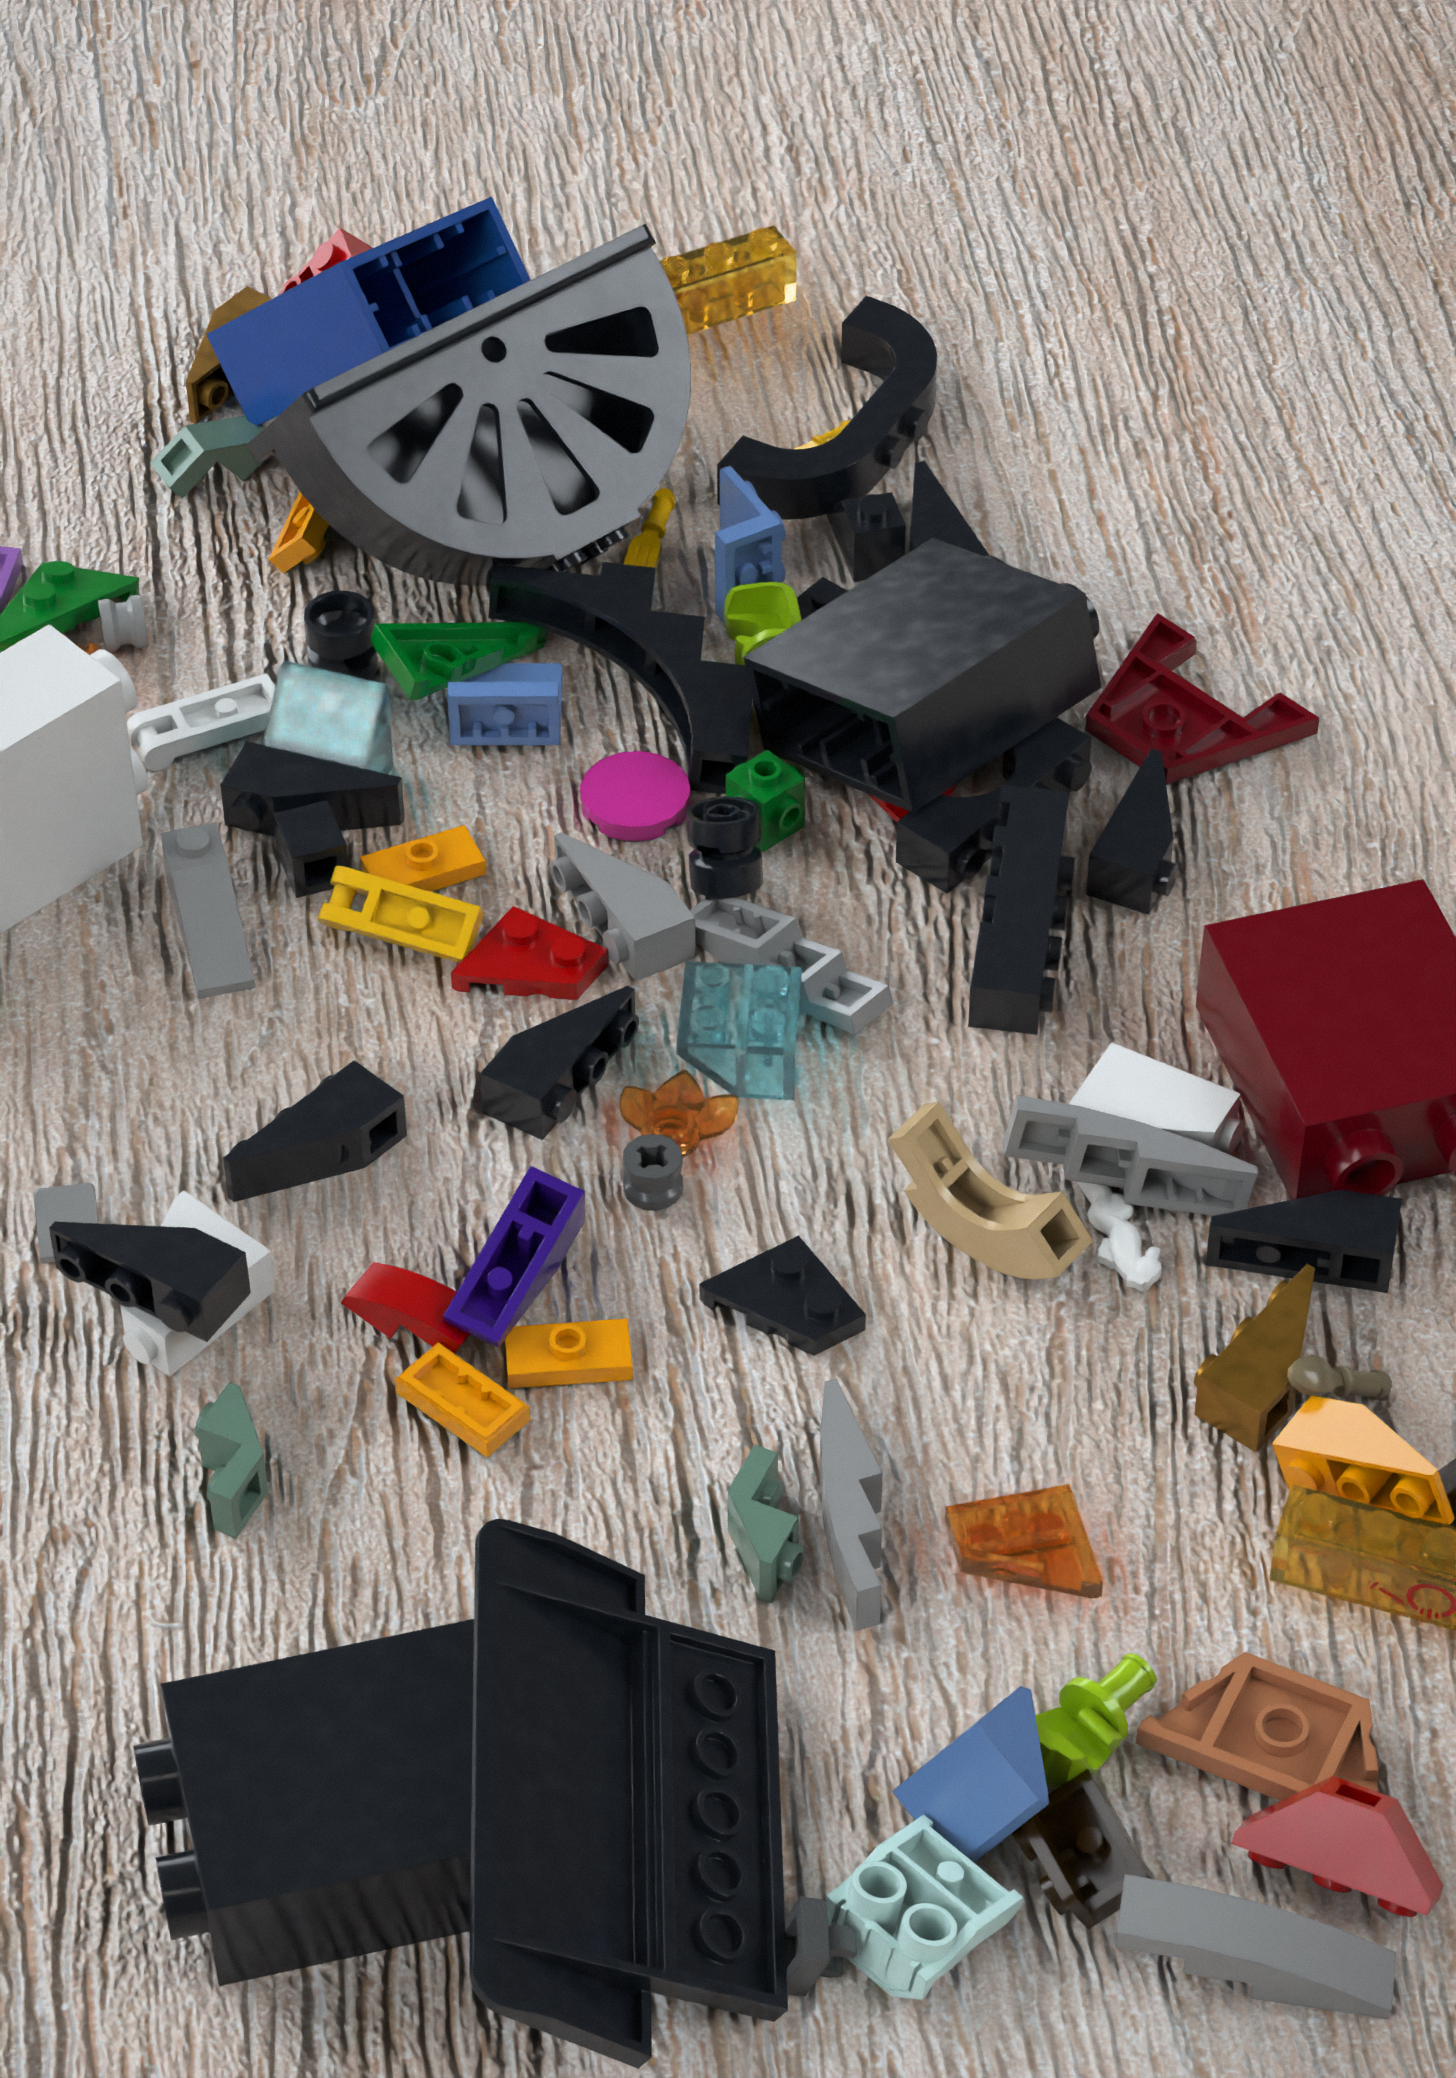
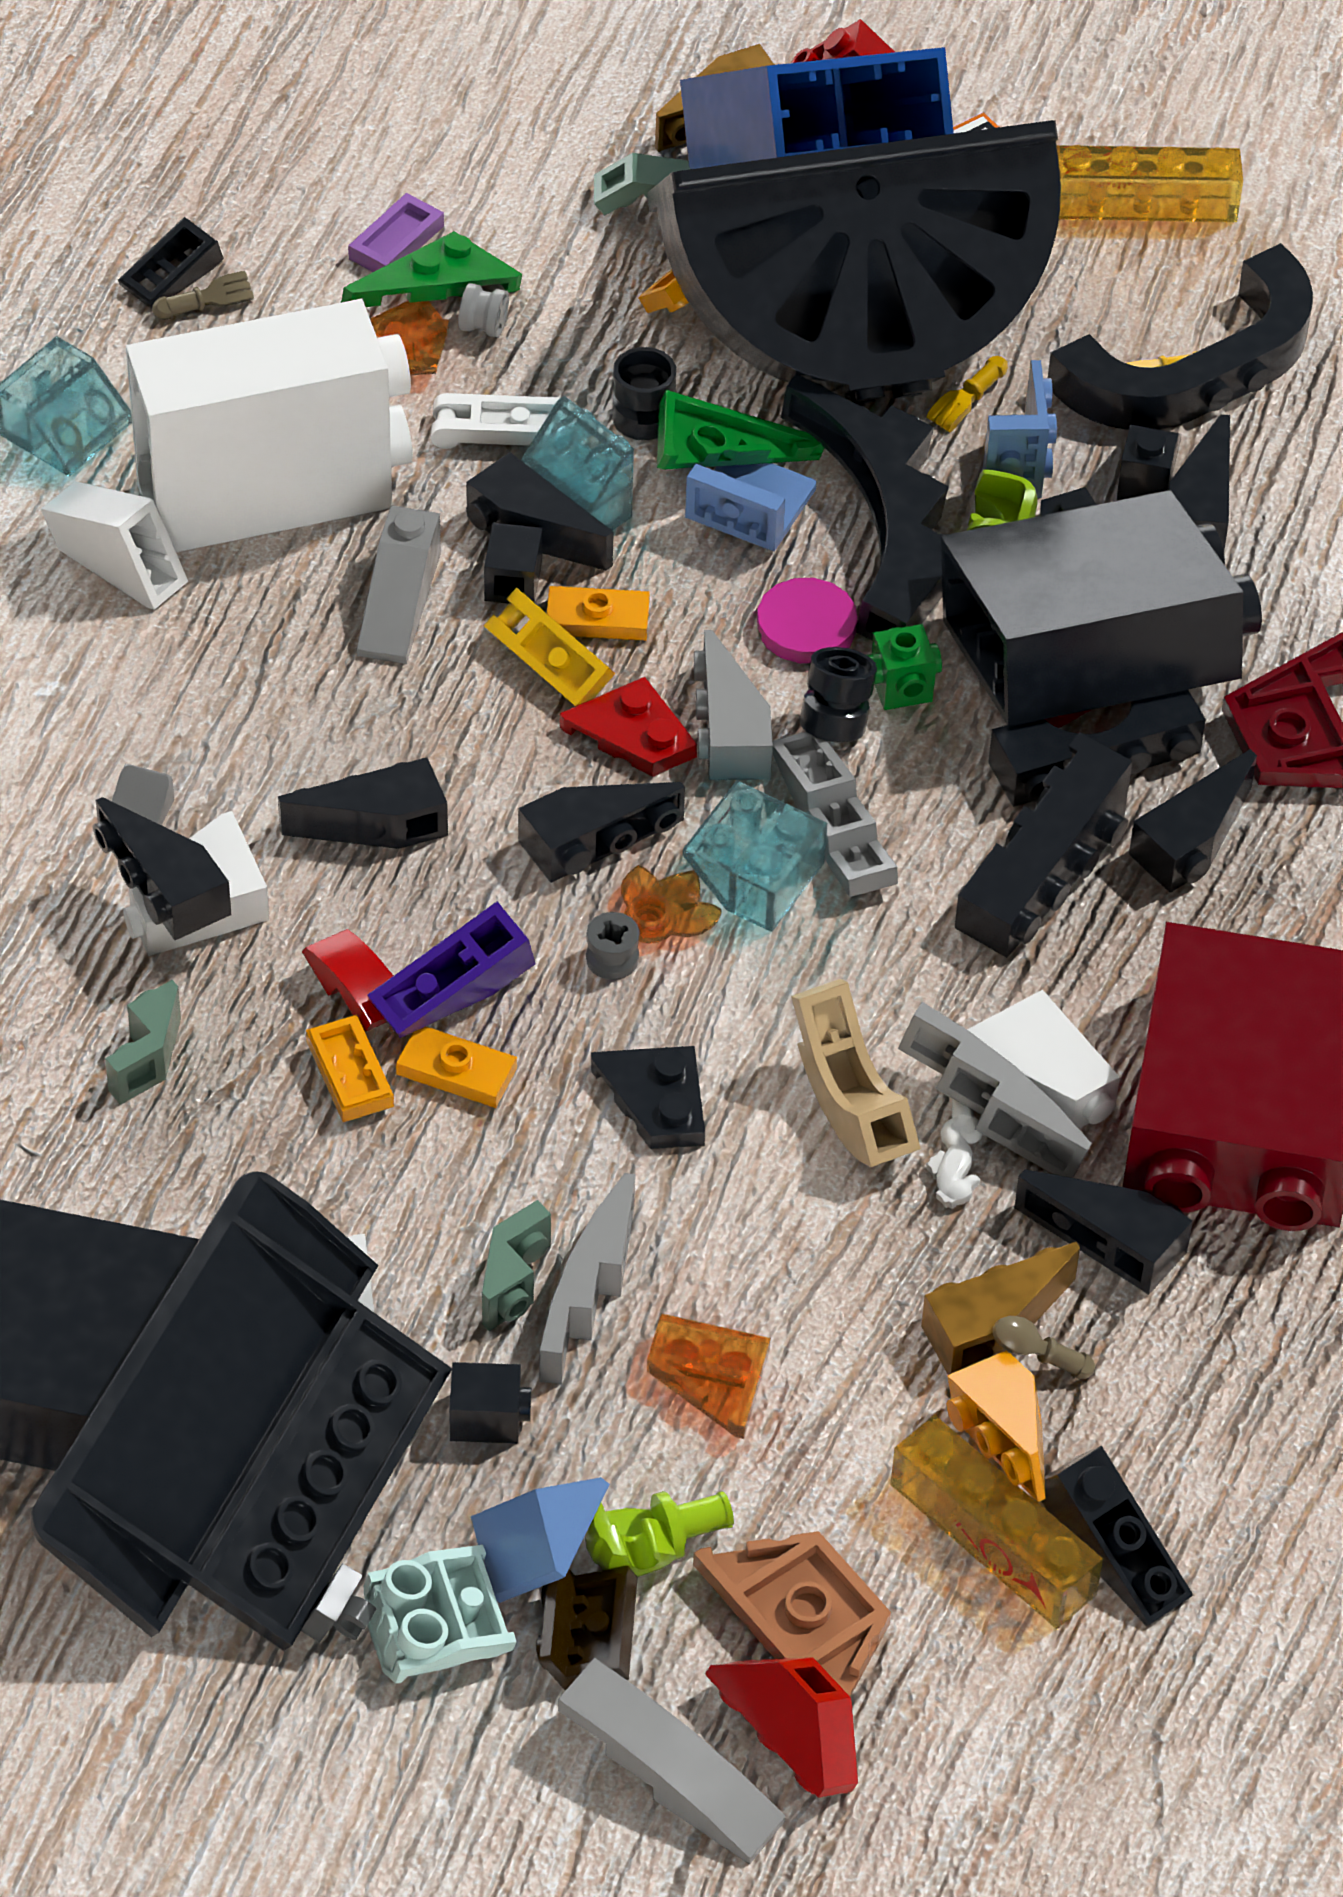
camera: 25 degrees right, 5 degrees up
(827, 1671) = (487, 1402): none -> black brick

